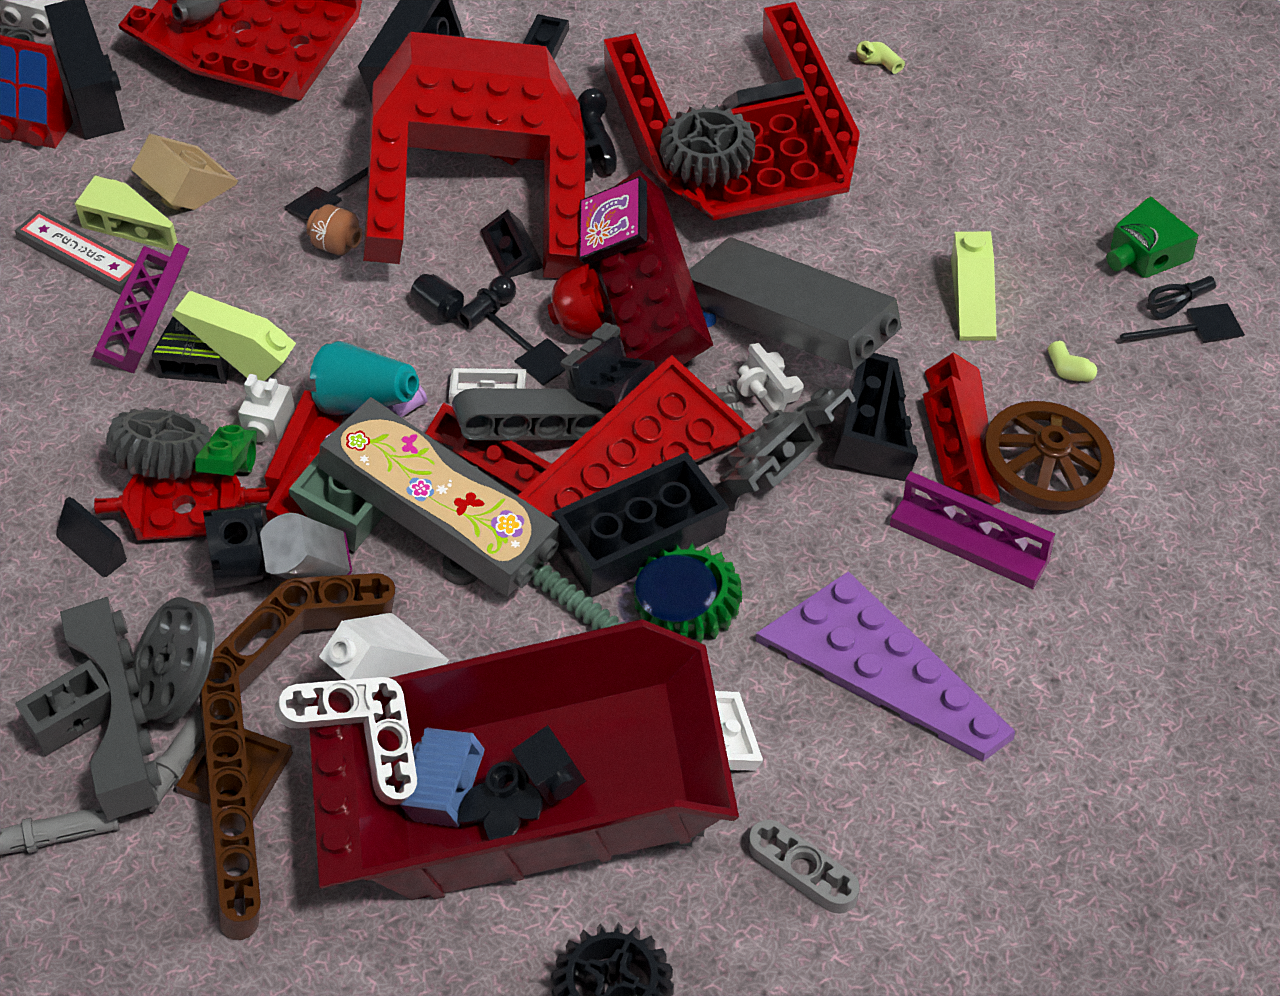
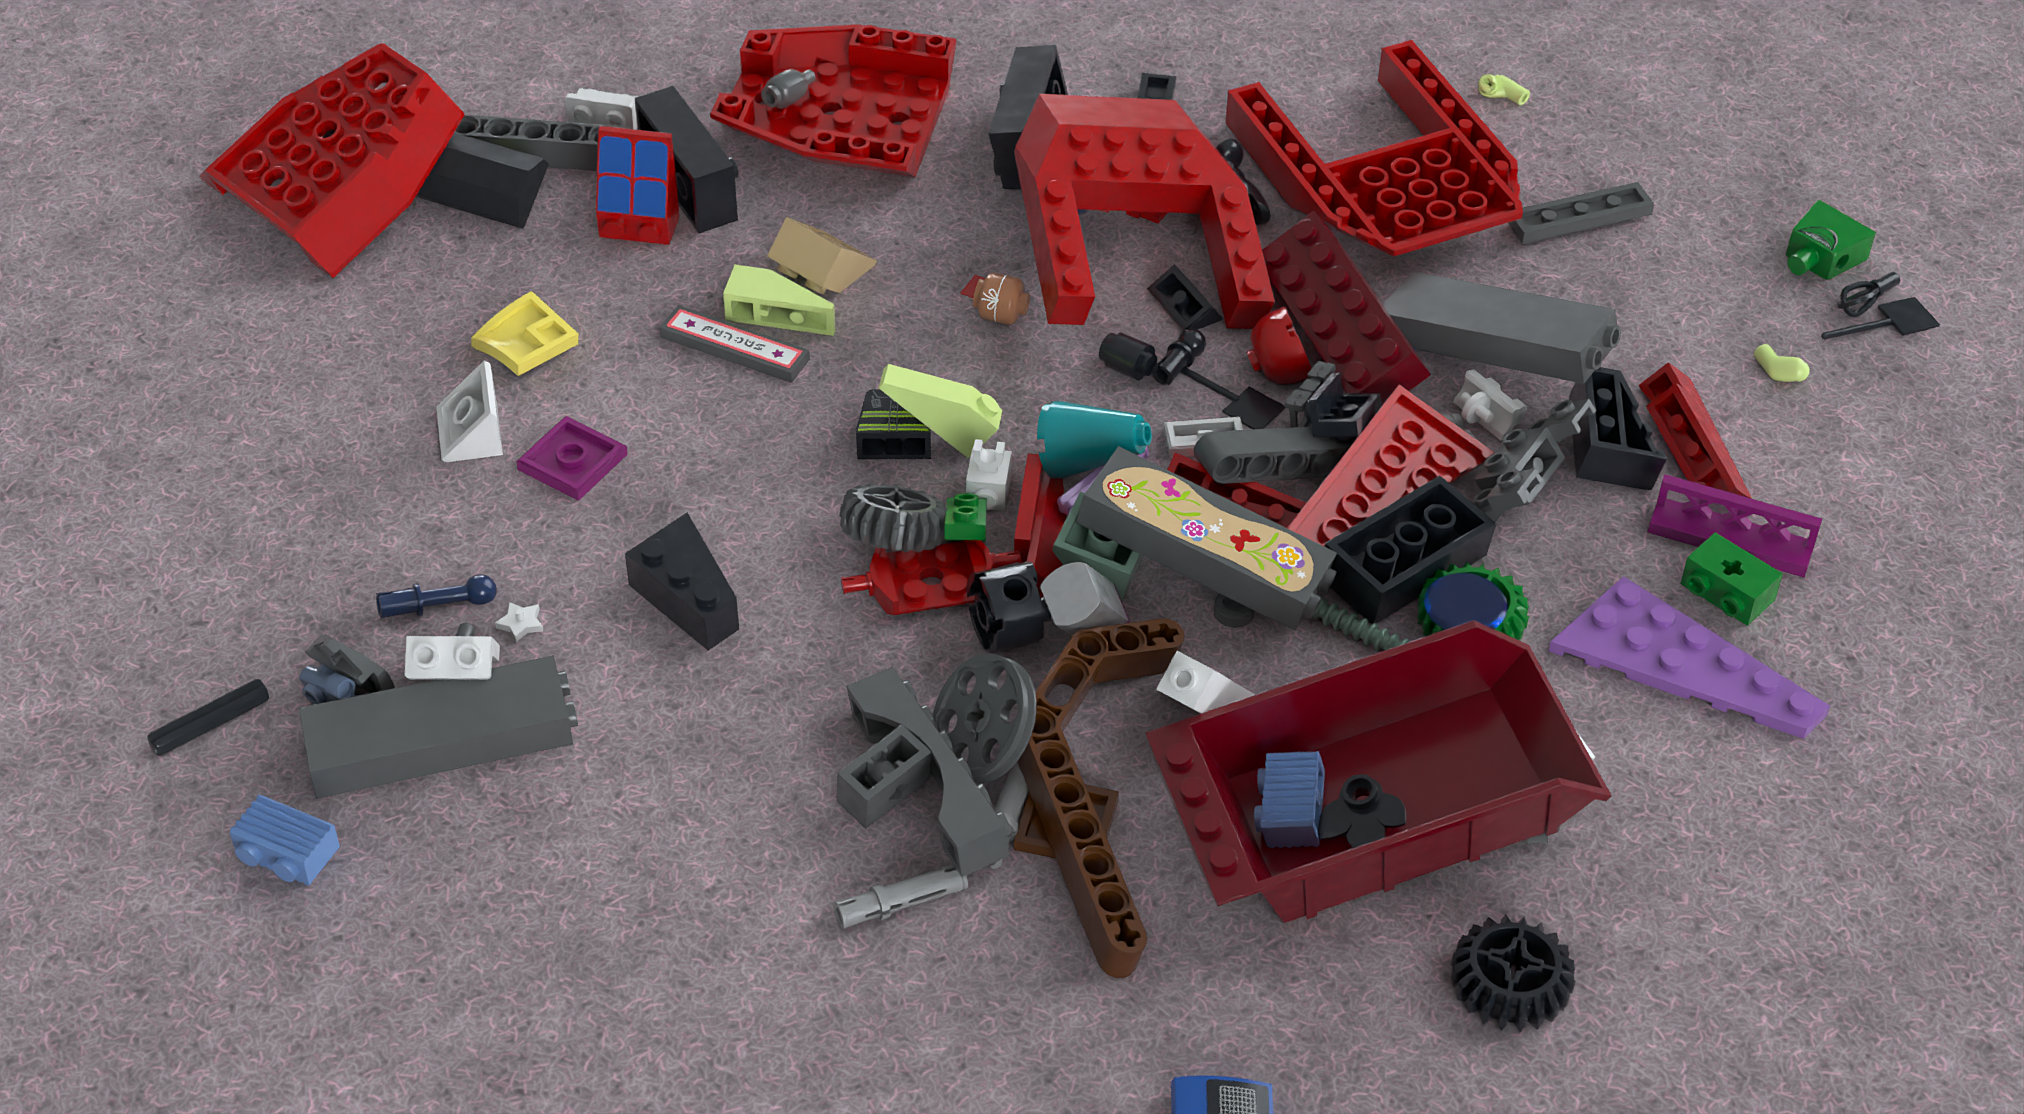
camera: 10 degrees left, 5 degrees down
(90, 538) = (844, 617): black slope -> none
(153, 307) = (831, 397): magenta fence -> none
(318, 197) = (965, 274): black piece -> none
(363, 711) = (1216, 737): white beam -> none
(549, 766) = (1405, 772): black brick -> none
(613, 220) = (1301, 262): tile -> none
(707, 145) = (1373, 183): dark grey gear -> none
(764, 93) = (1404, 132): black tile -> none
(836, 874) = (1654, 833): light grey beam -> none
(917, 188) = (1582, 212): none -> dark grey plate
(953, 586) = (1731, 579): none -> green brick
(974, 285) = (1666, 298): yellowish green slope -> none
(1051, 450) = (1790, 443): reddish brown wheel -> none

